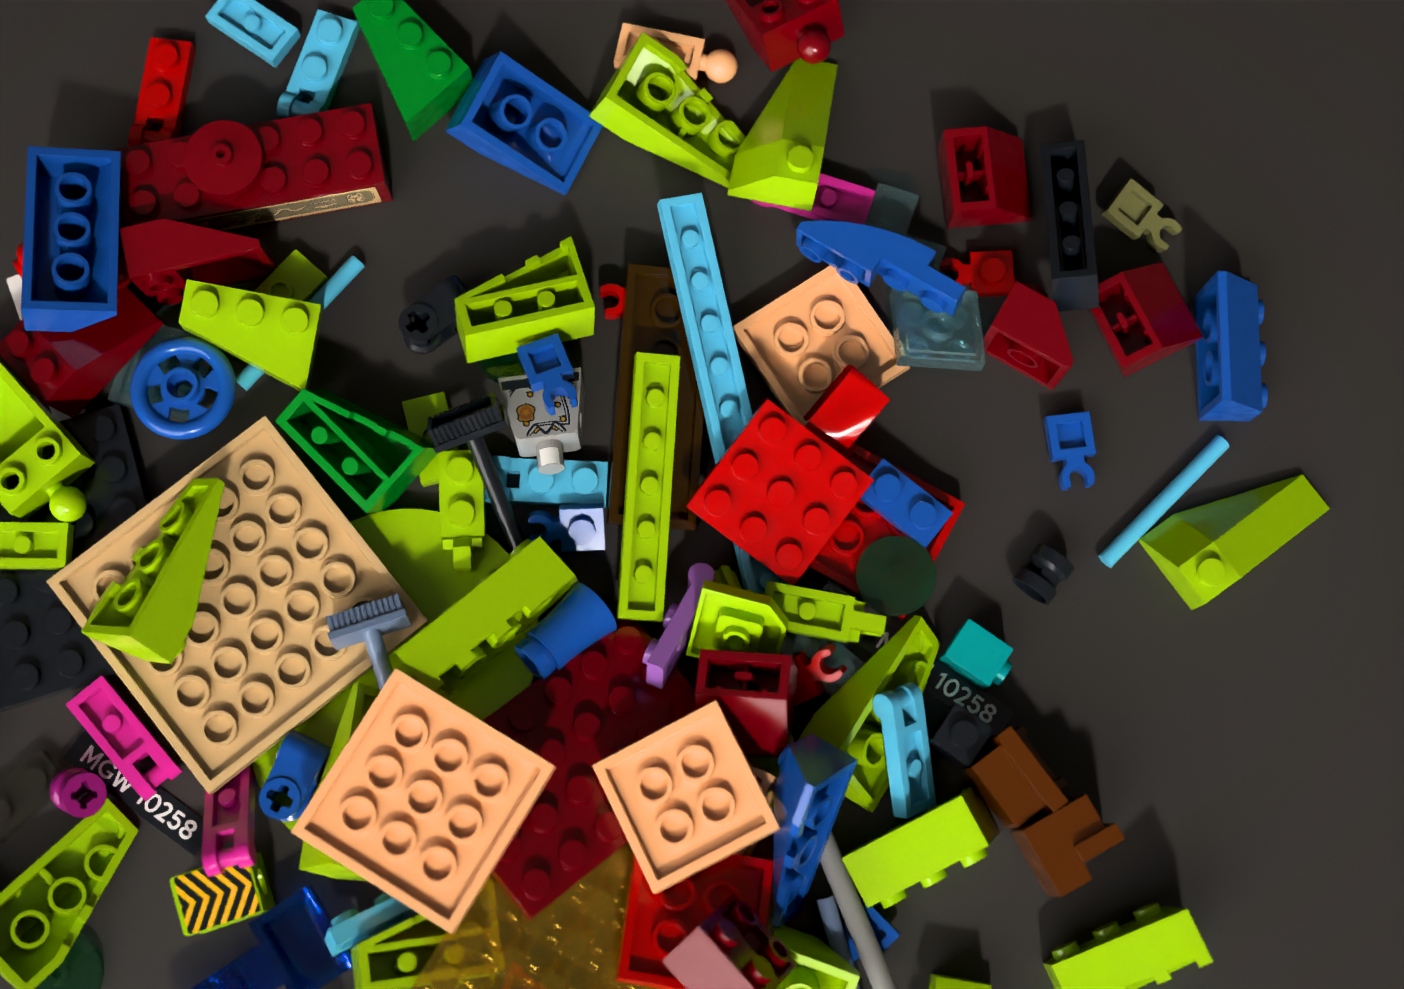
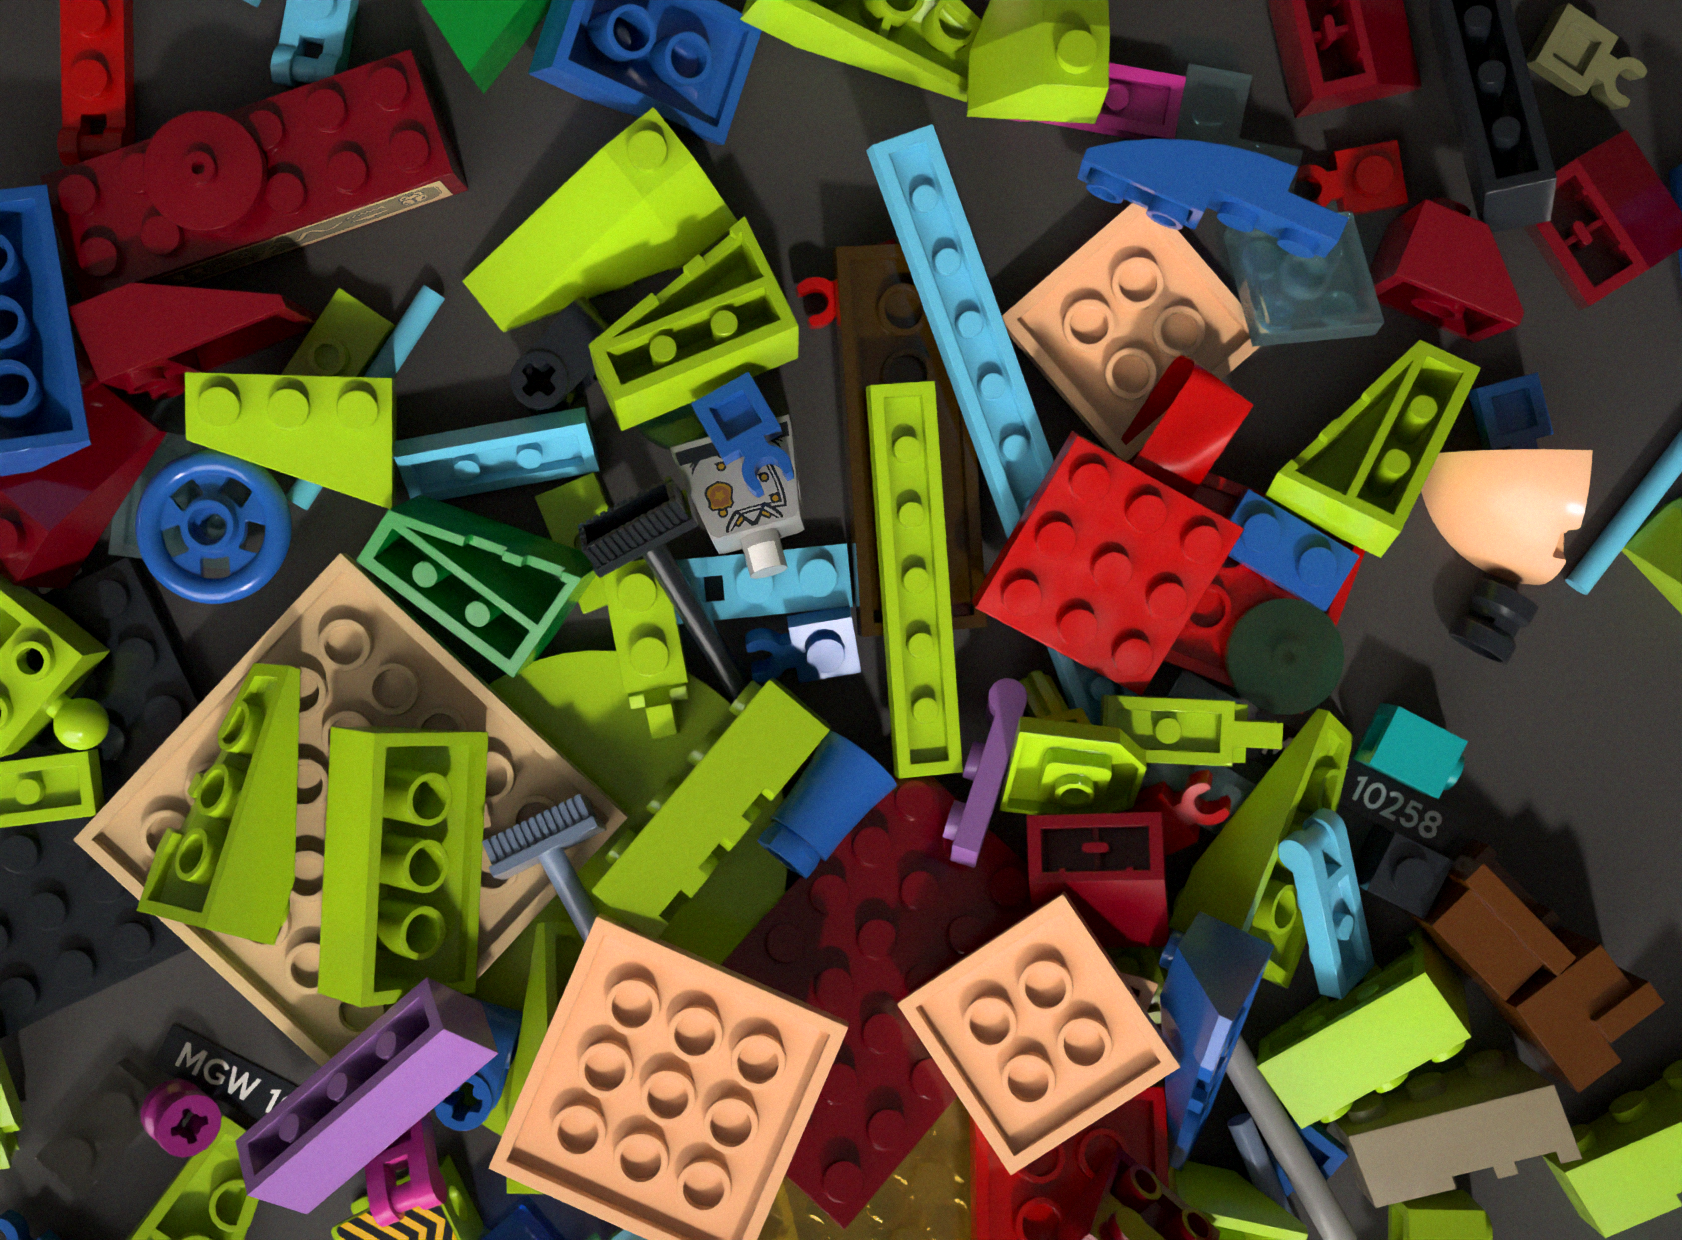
camera: 10 degrees left, 10 degrees up
(123, 736) = (226, 1029): dark pink plate -> none
(213, 779) = (365, 1097): none -> medium lavender brick
(269, 623) = (401, 861): none -> lime slope
(382, 370) = (498, 455): none -> medium azure plate
(478, 234) = (615, 221): none -> lime wedge
(973, 445) = (1377, 455): none -> lime wedge
(974, 924) = (1452, 1126): none -> dark tan wedge
(1058, 496) = (1510, 507): none -> light nougat brick

